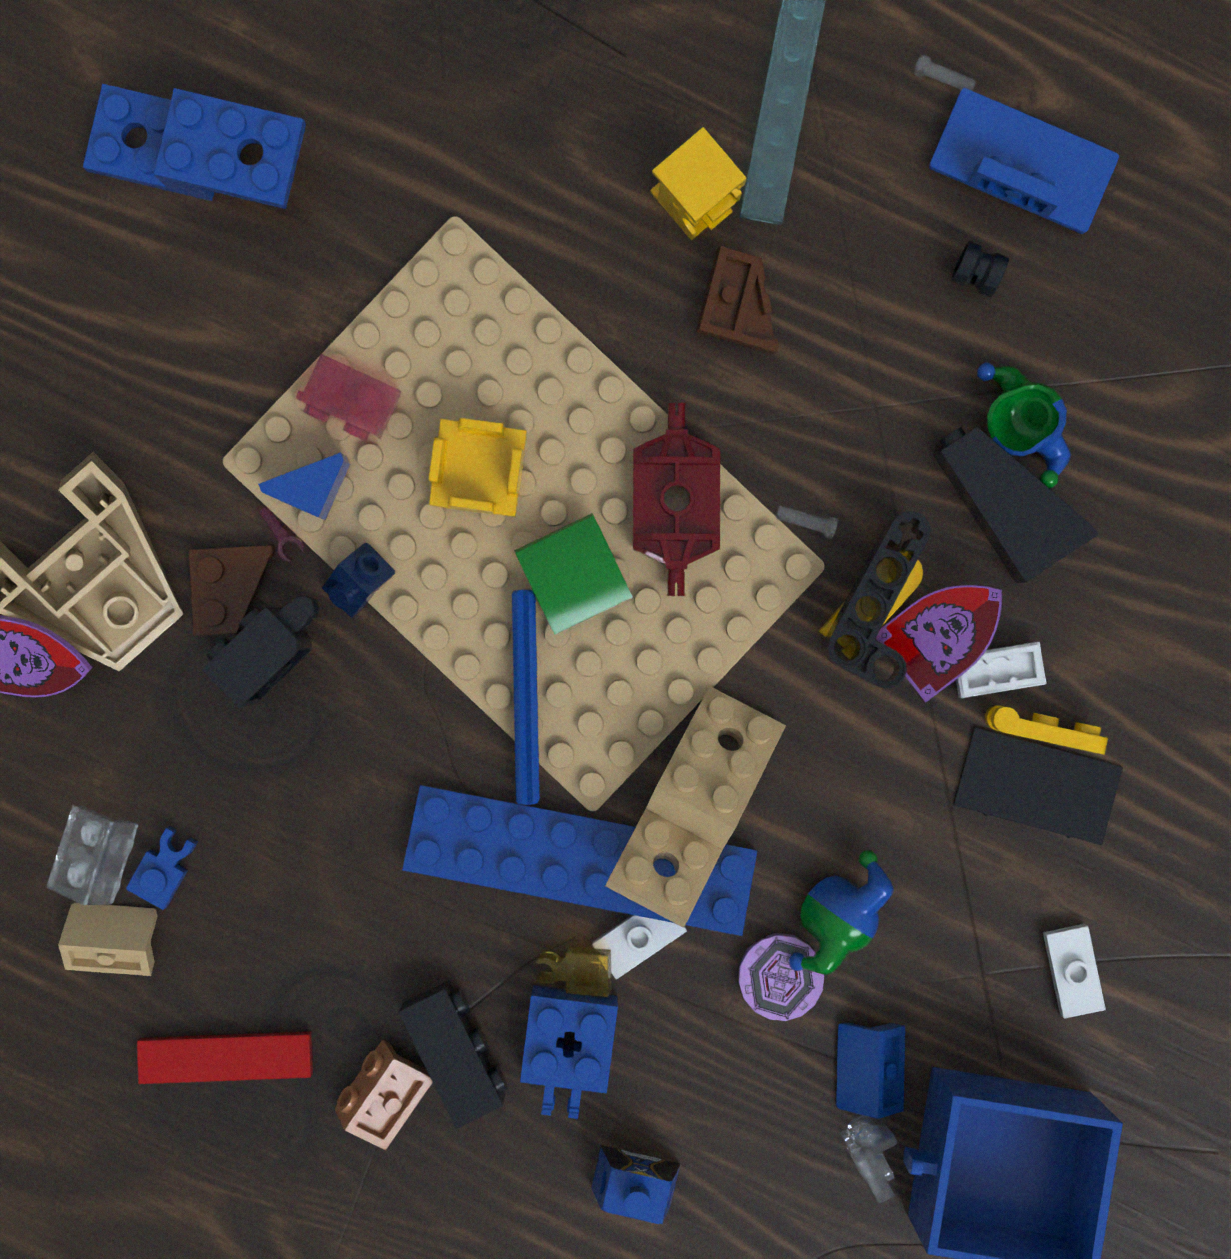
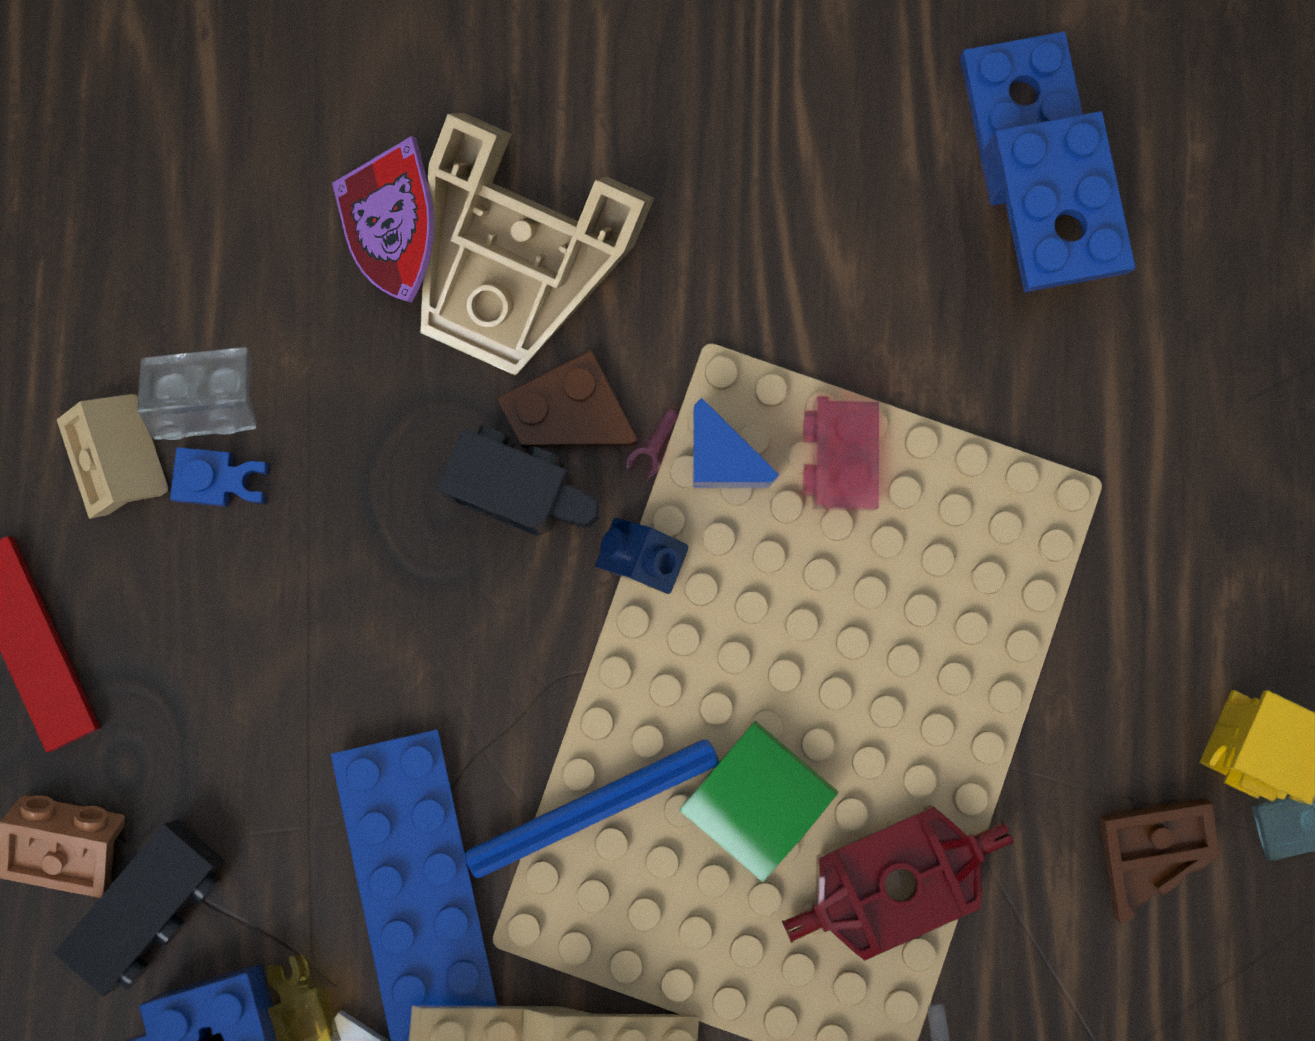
camera: 65 degrees right, 5 degrees down
(477, 467) = (831, 636): yellow panel -> none

